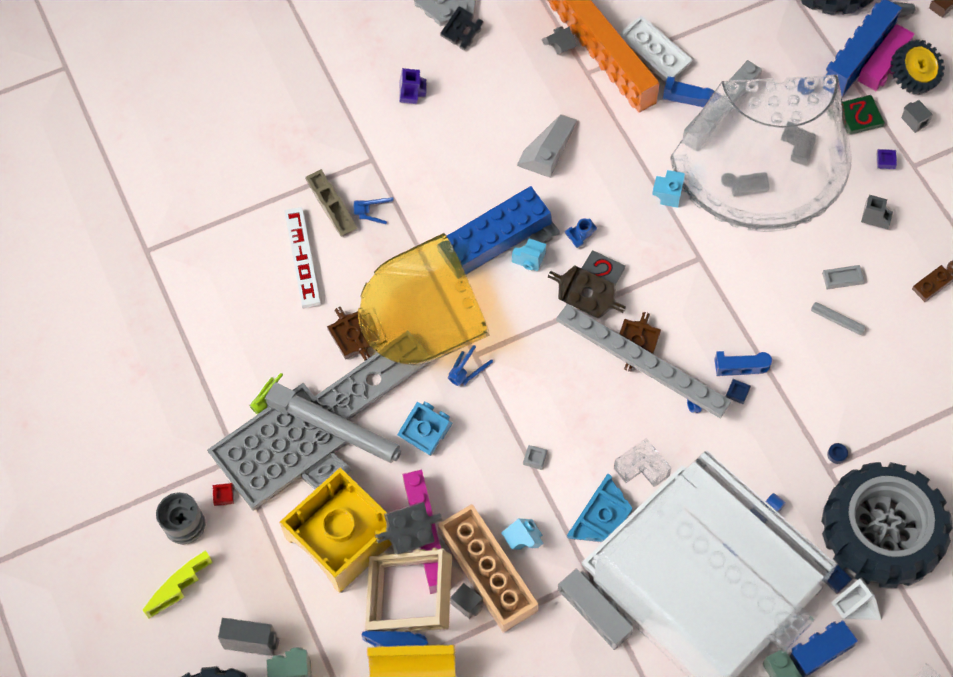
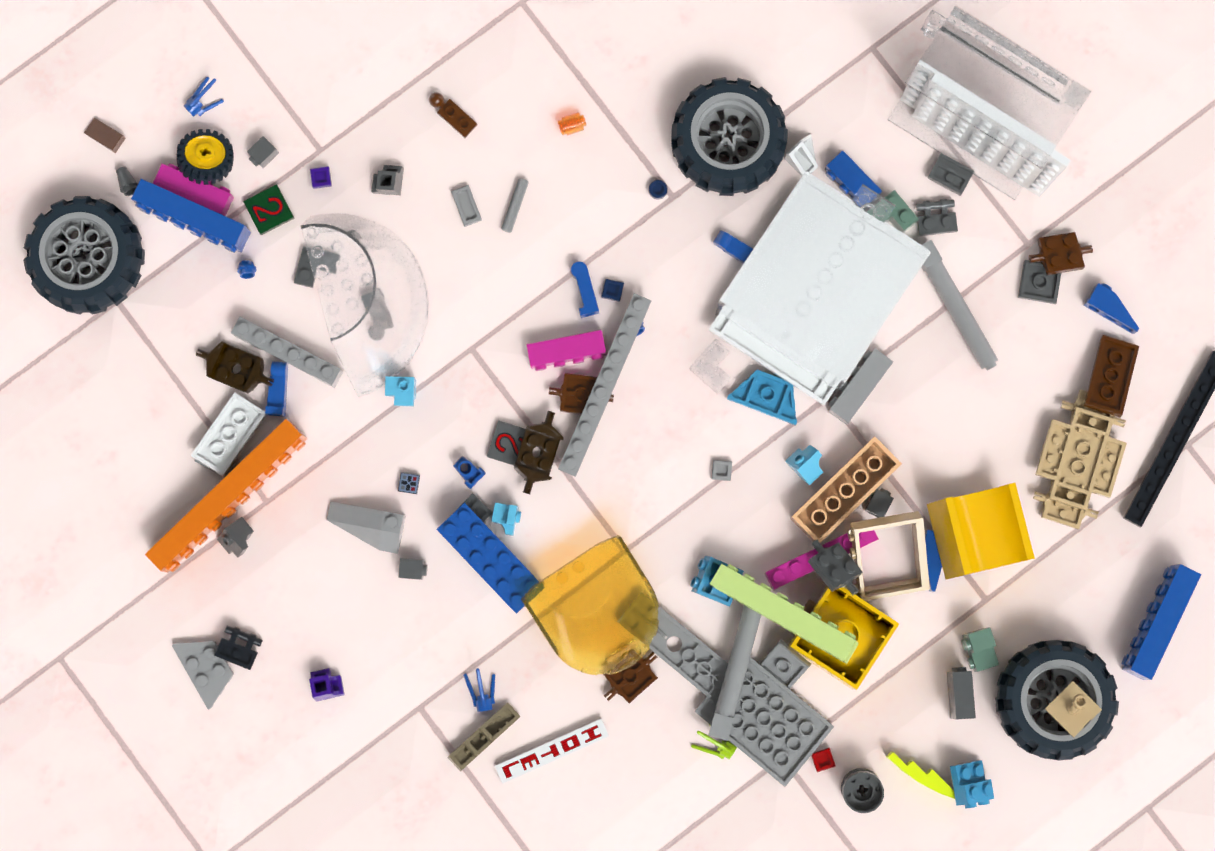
camera: 100 degrees left, 20 degrees up
(154, 628) = (971, 785): none -> dark azure plate
(372, 467) = (787, 615): none -> yellowish green brick
(458, 373) = (653, 561): blue plant -> none
(499, 170) = (412, 569): none -> dark grey brick
(580, 183) = (409, 483): none -> tile
(684, 335) = (566, 349): none -> dark pink brick
(718, 54) = (223, 359): none -> dark brown plate
(838, 579) = (783, 176): dark blue tile -> none
(916, 383) = (572, 124): none -> clear orange brick

